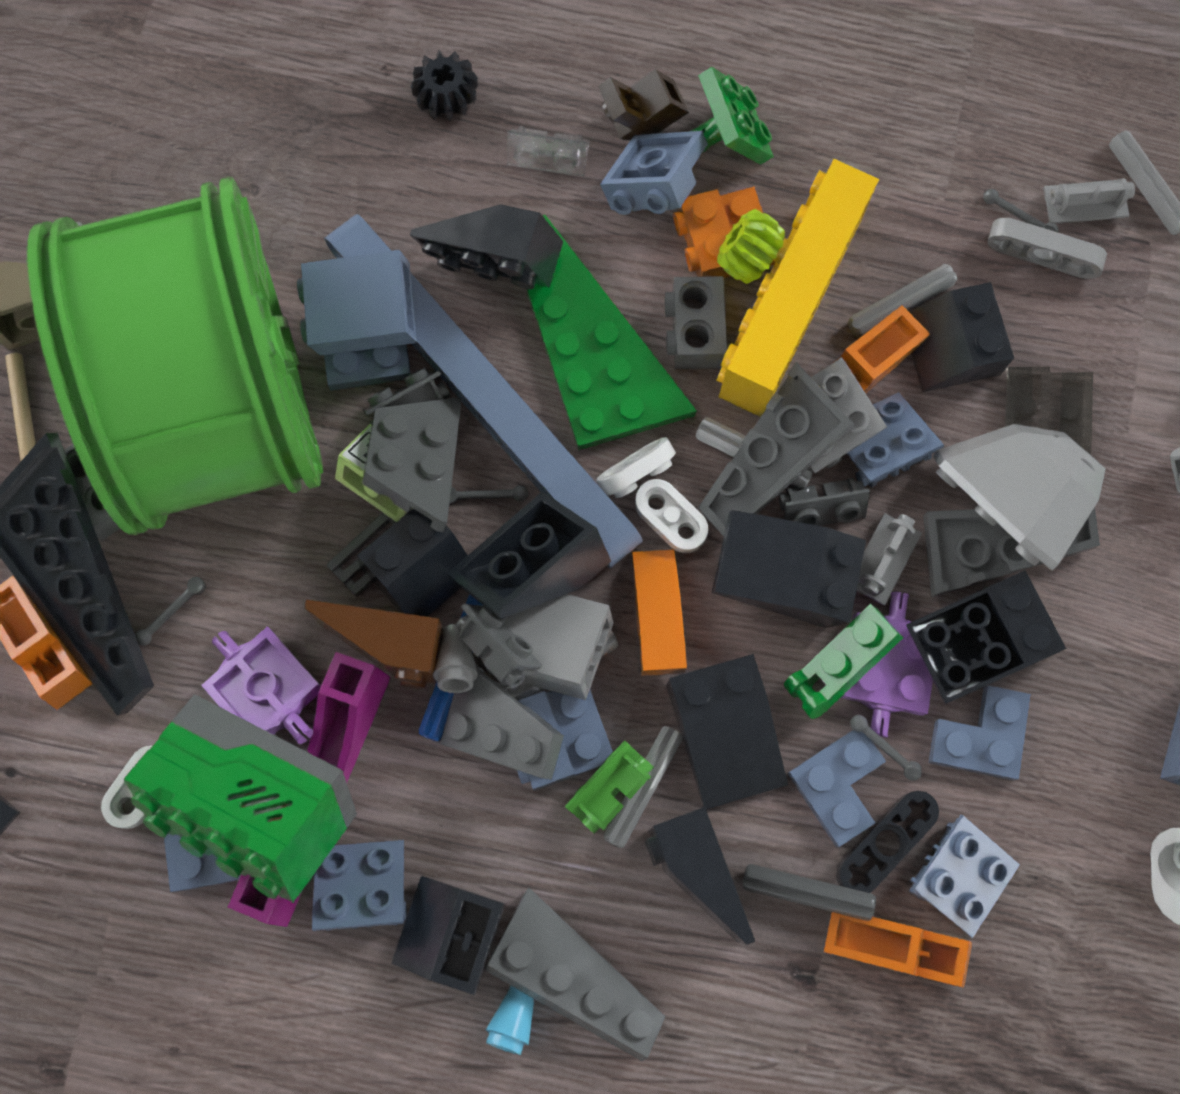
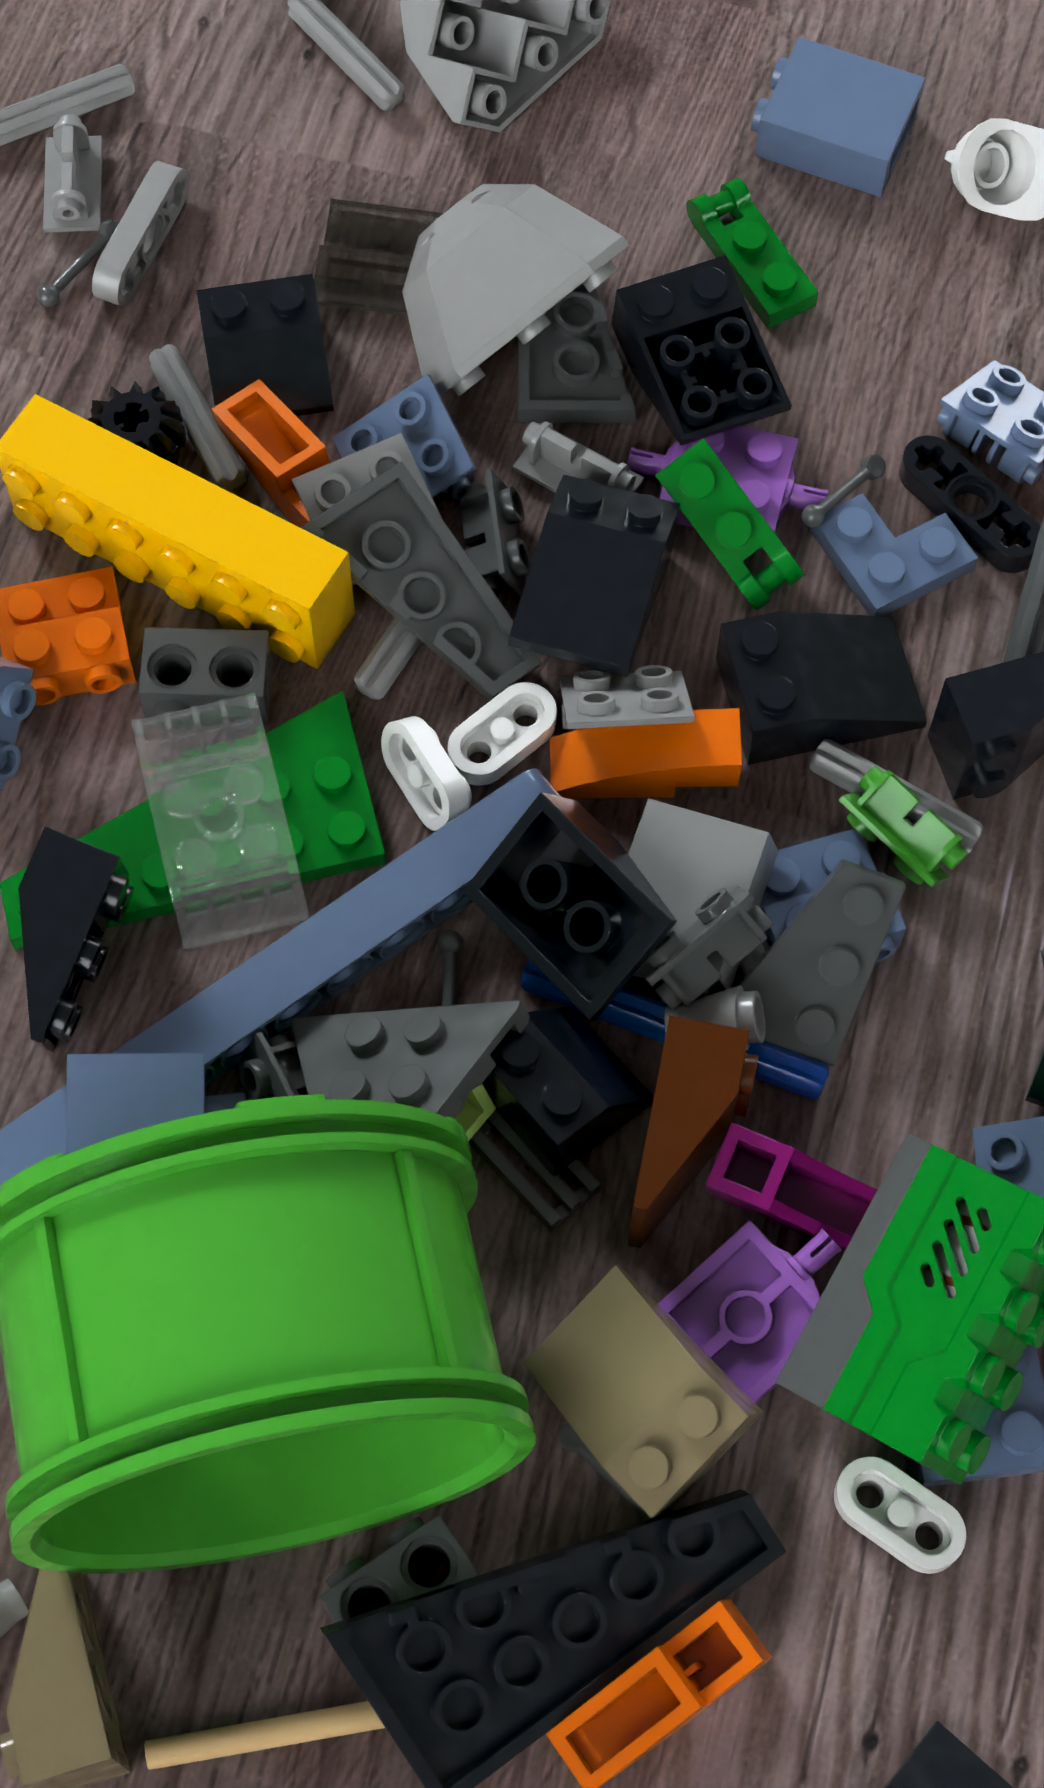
camera: 85 degrees left, 10 degrees down
(209, 621) = (640, 1393): none -> dark tan slope
(584, 336) = (220, 822): none -> clear plate
(687, 593) = (610, 700): none -> light grey hinge
(751, 246) = (112, 573): lime gear -> none
(881, 260) = (143, 420): none -> black gear
(994, 745) = (840, 373): sand blue plate -> none
(1089, 679) = (756, 255): none -> green plate

